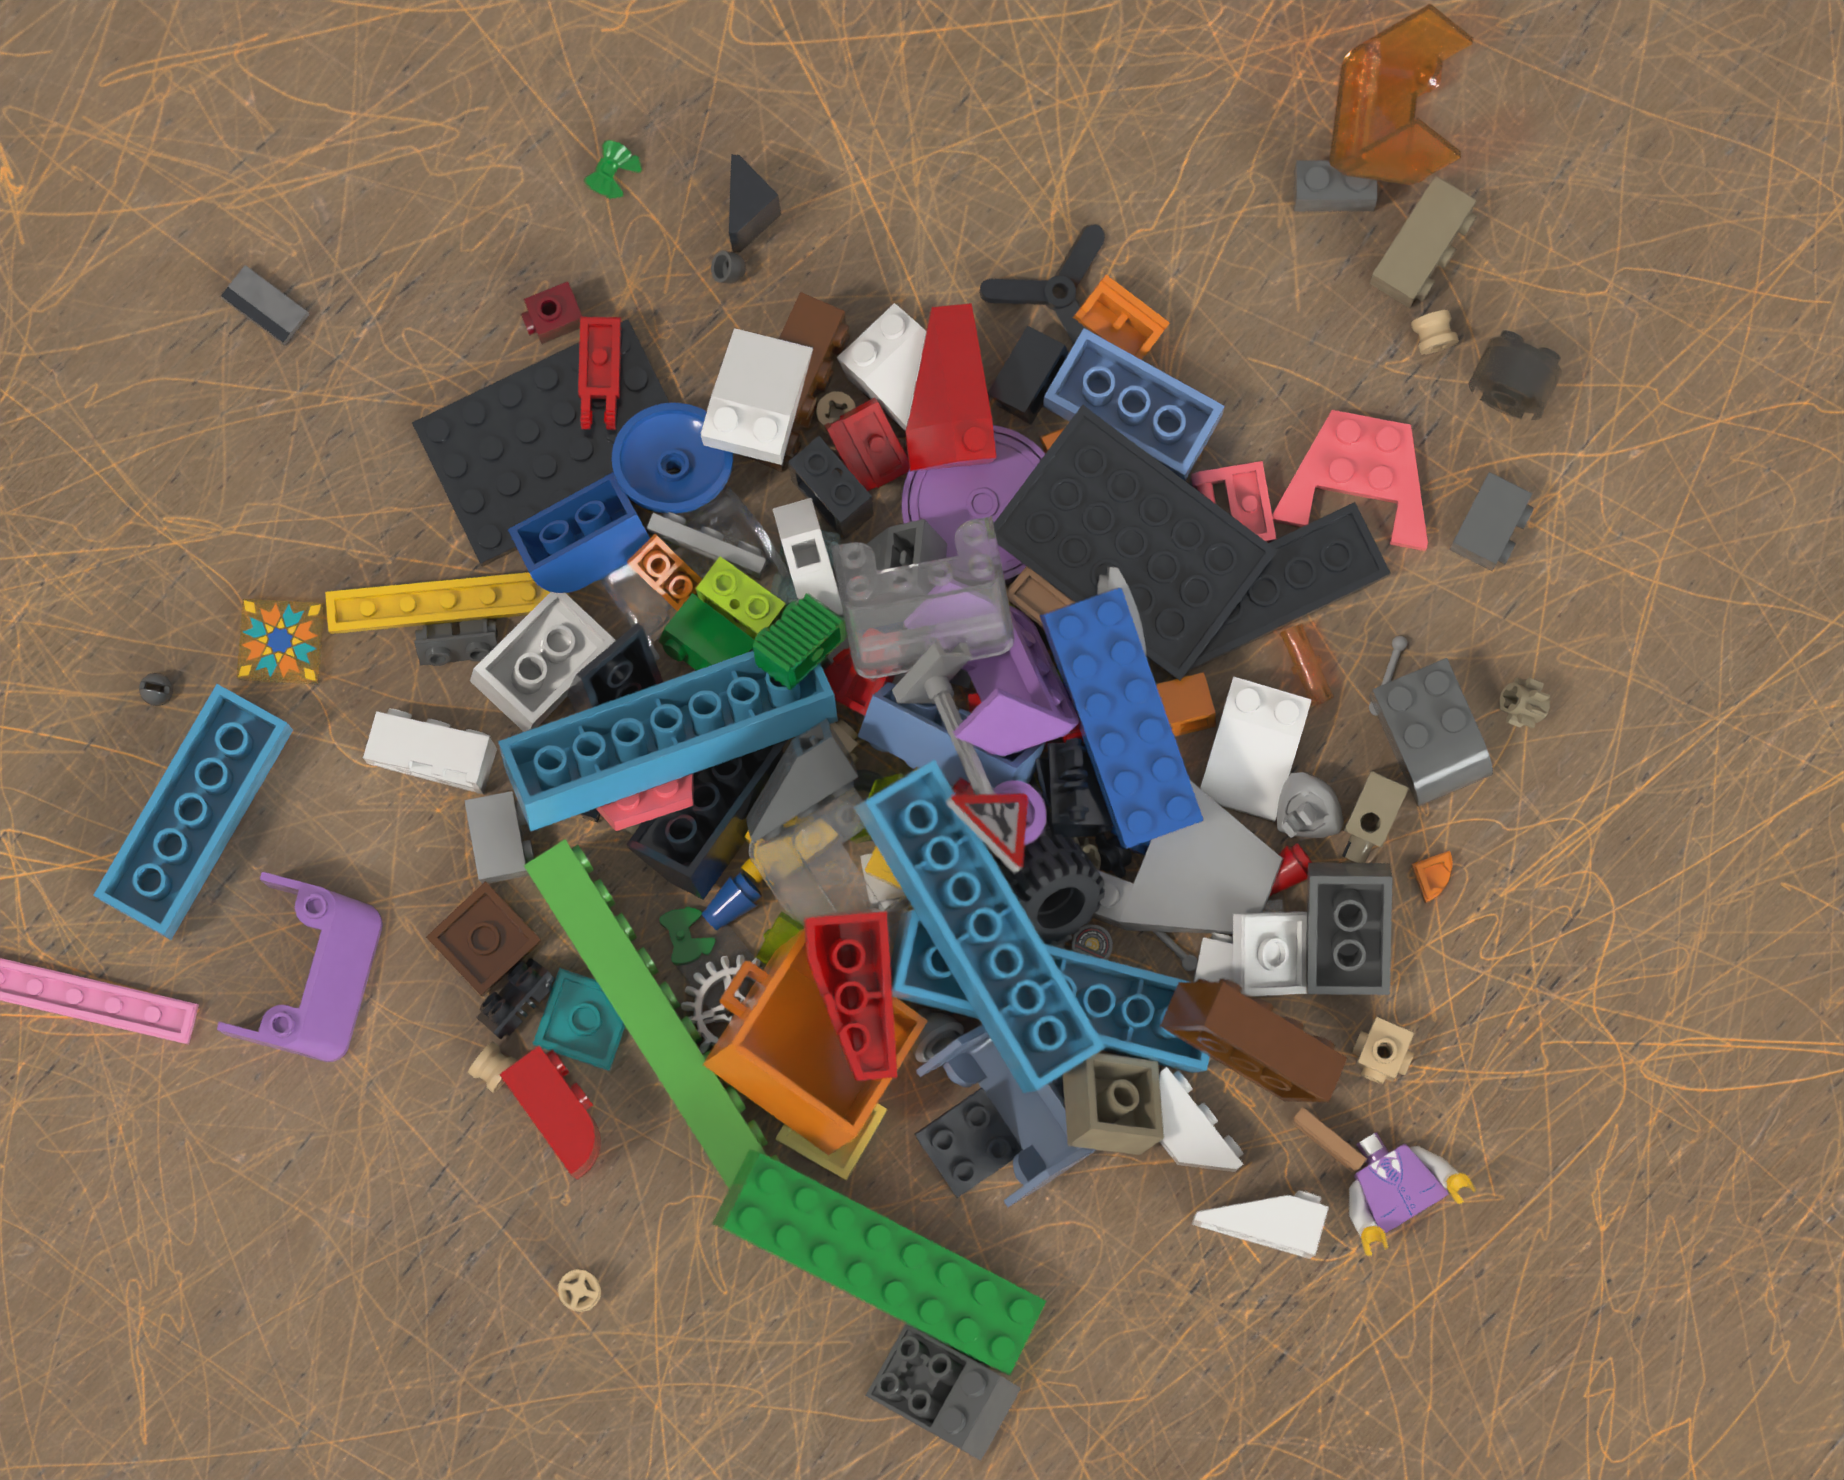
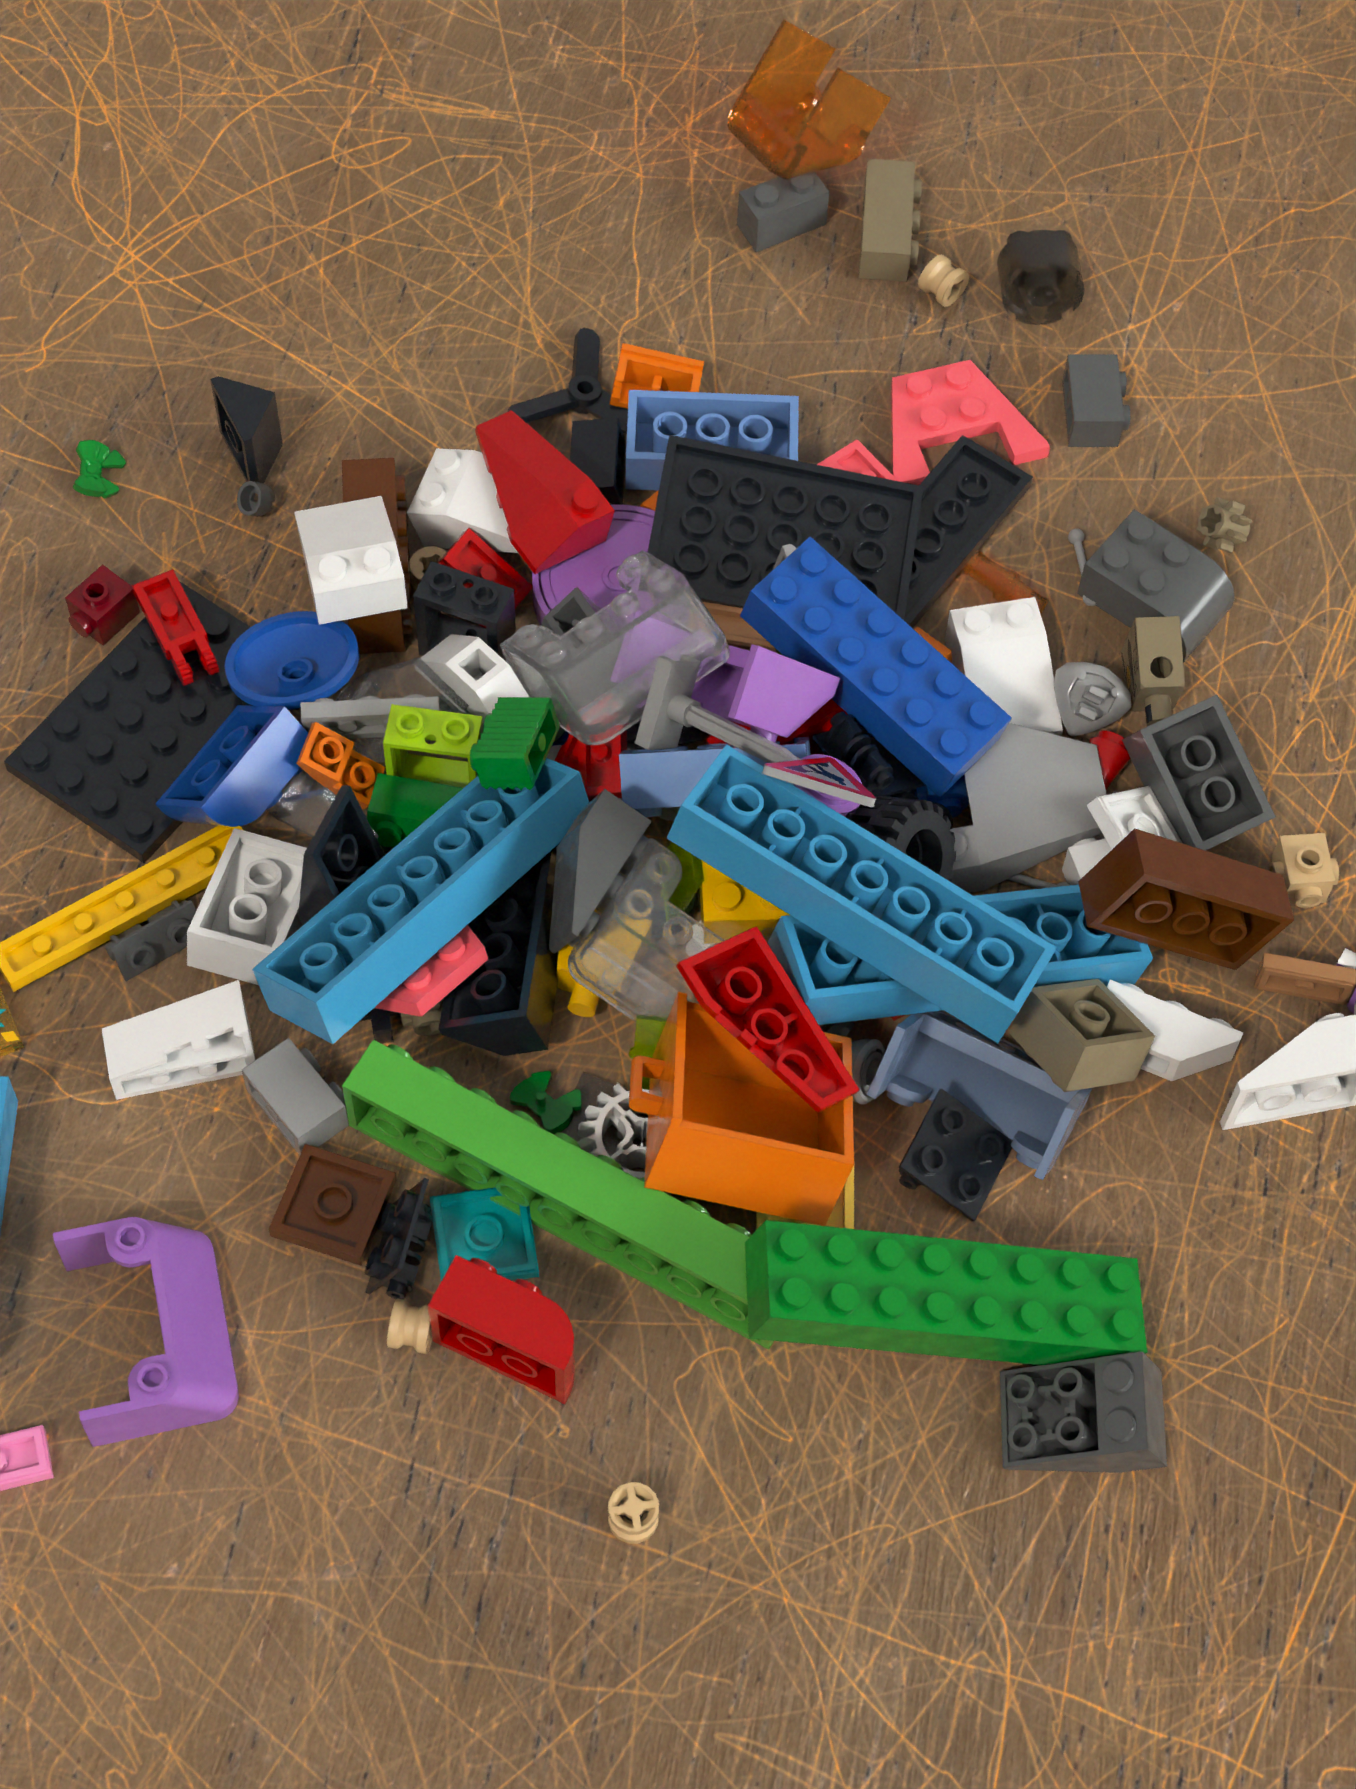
camera: 35 degrees left, 20 degrees down
(732, 901) = (576, 1043): blue cone -> none
(1433, 875) = (1240, 708): orange tile -> none

